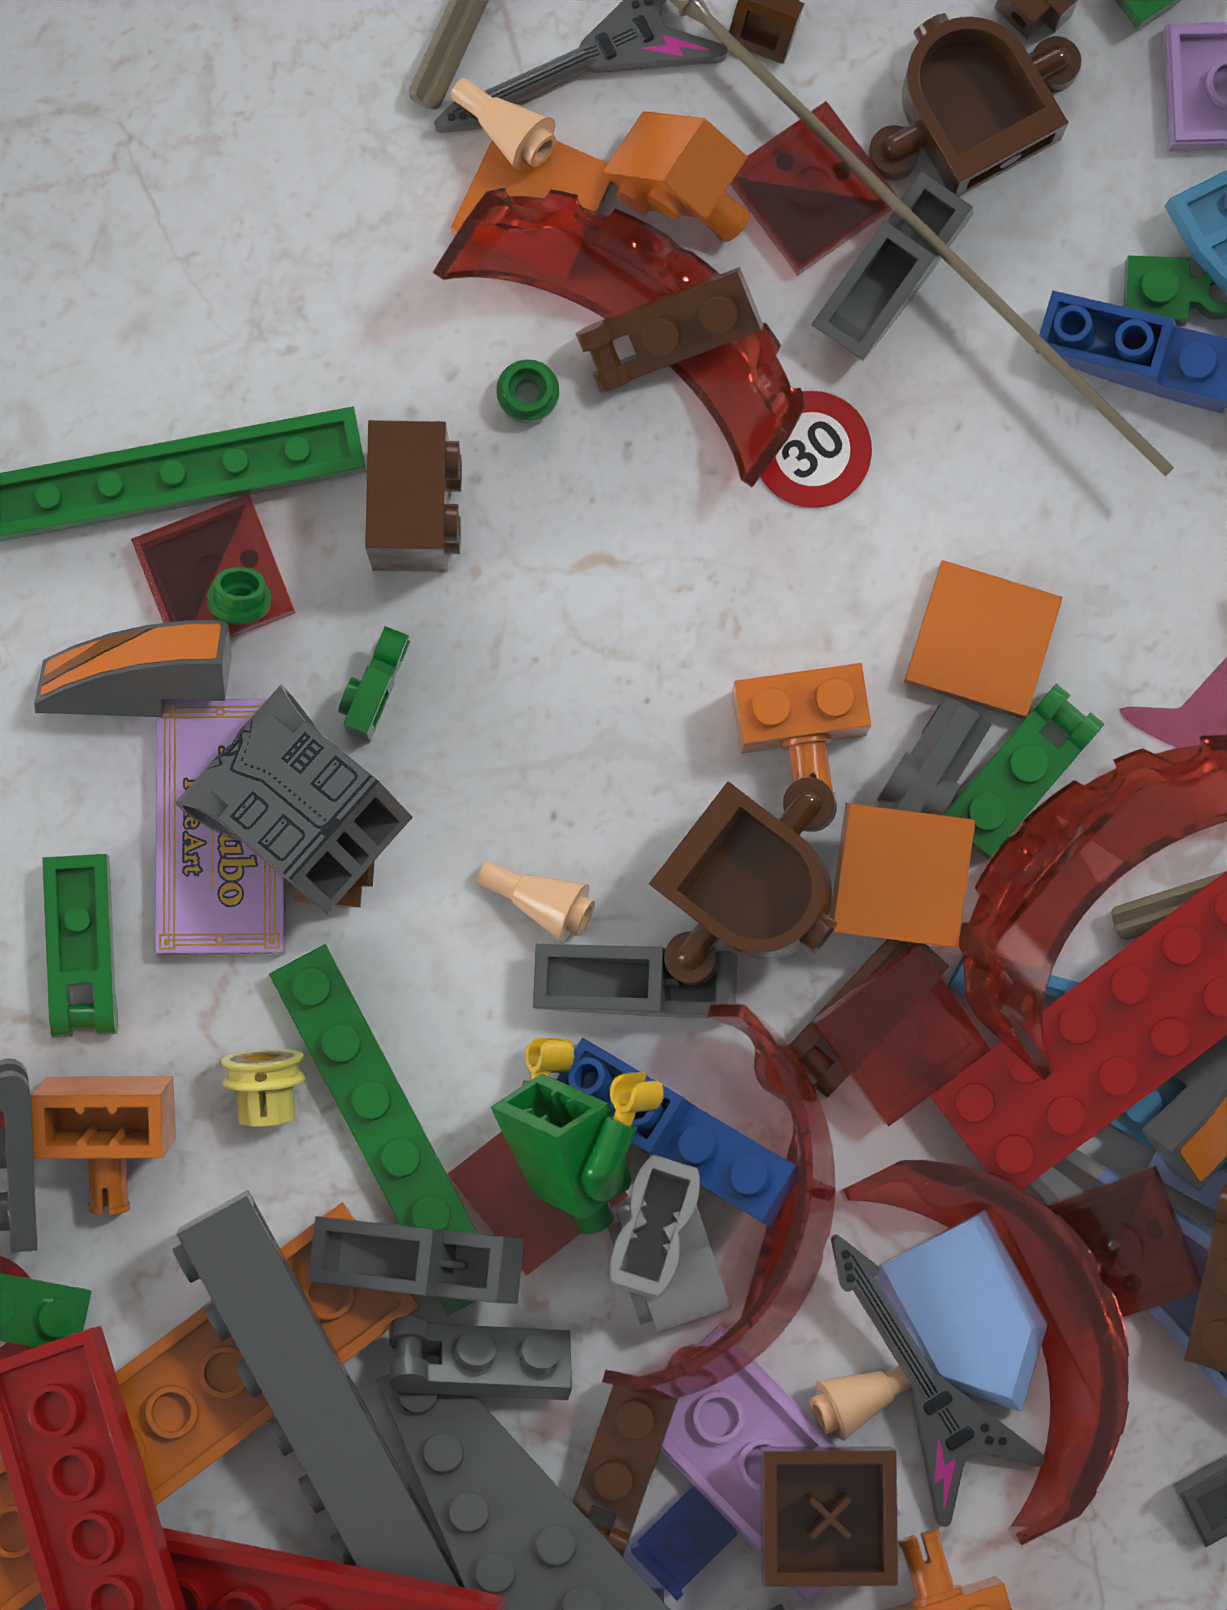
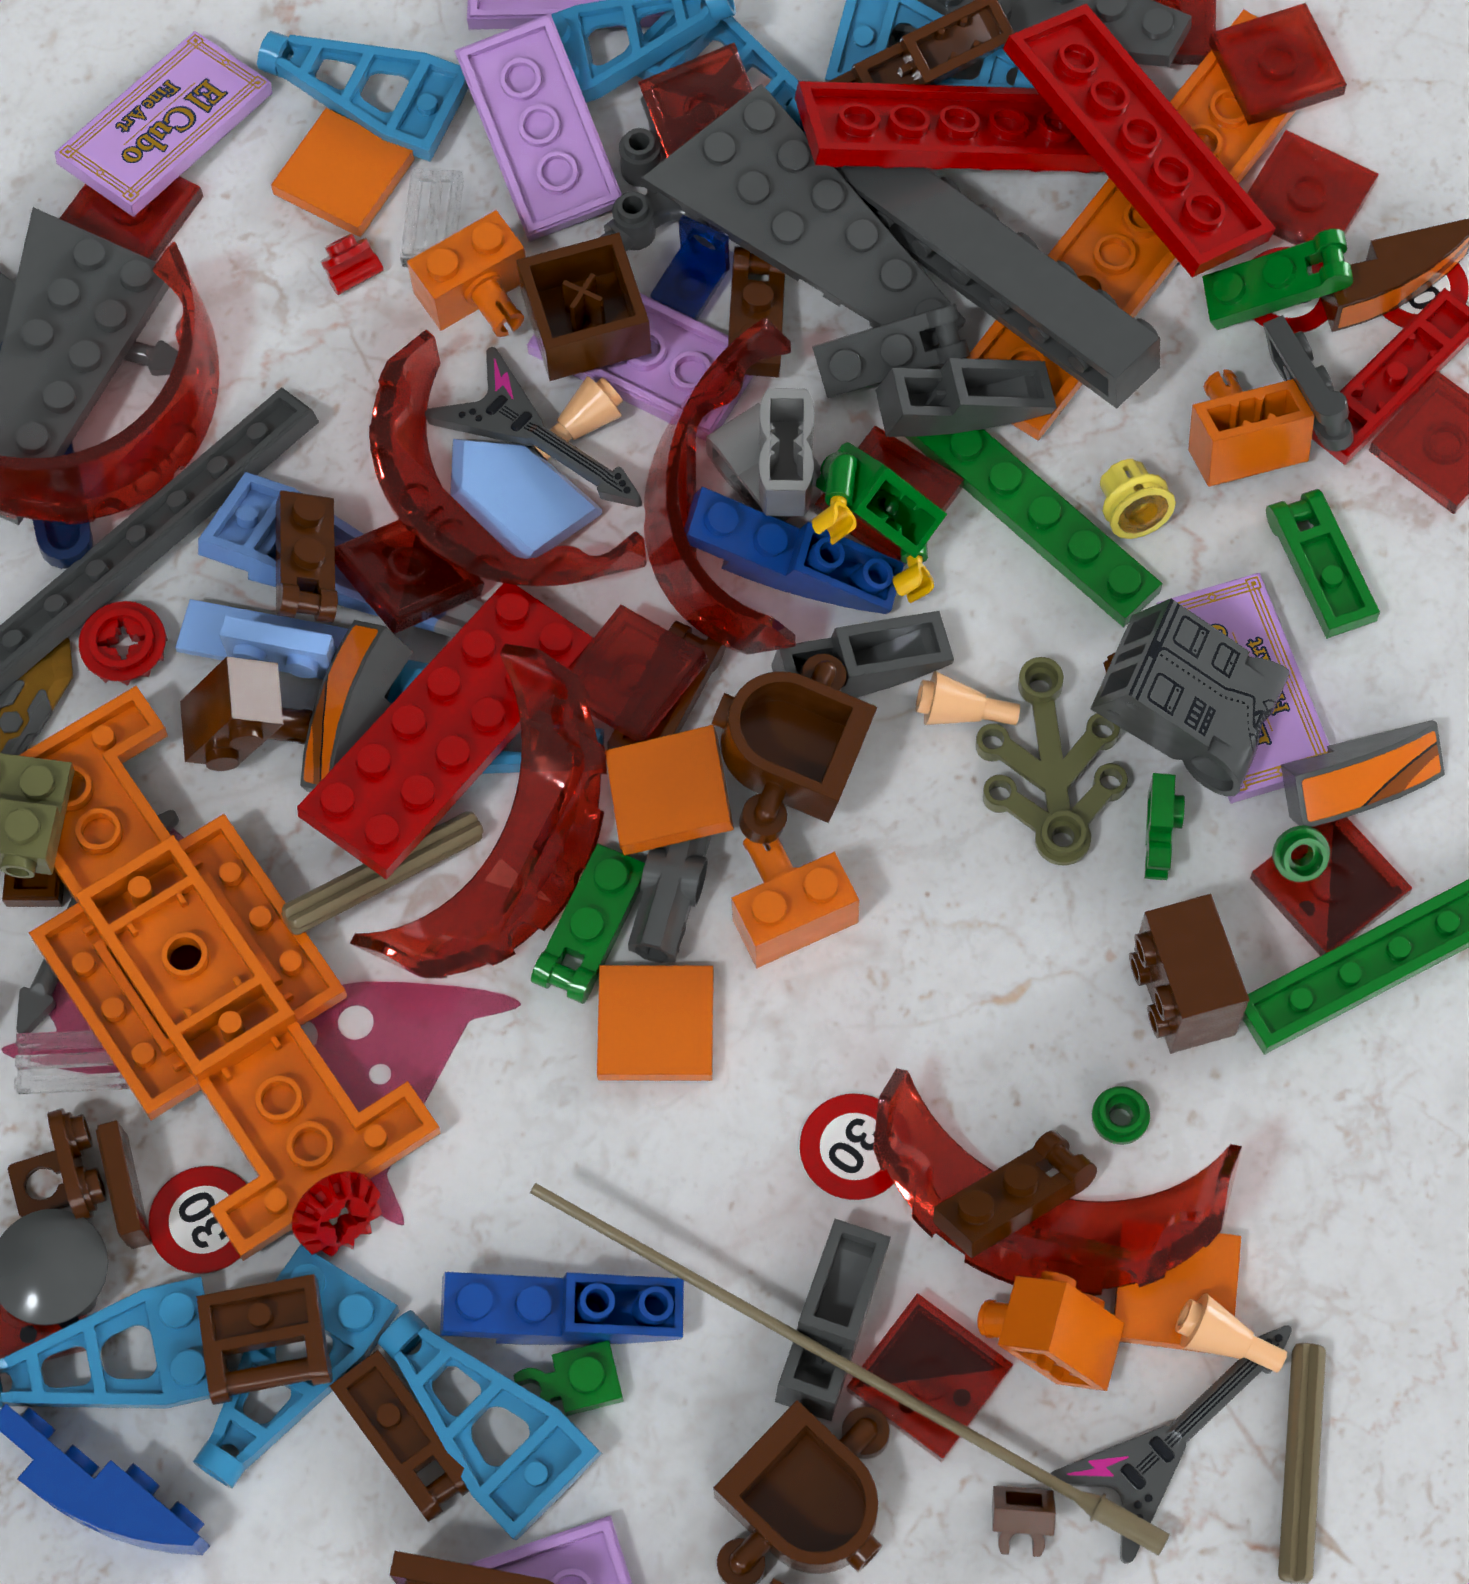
camera: 170 degrees right, 15 degrees down
(467, 789) = (1052, 772): none -> olive plant

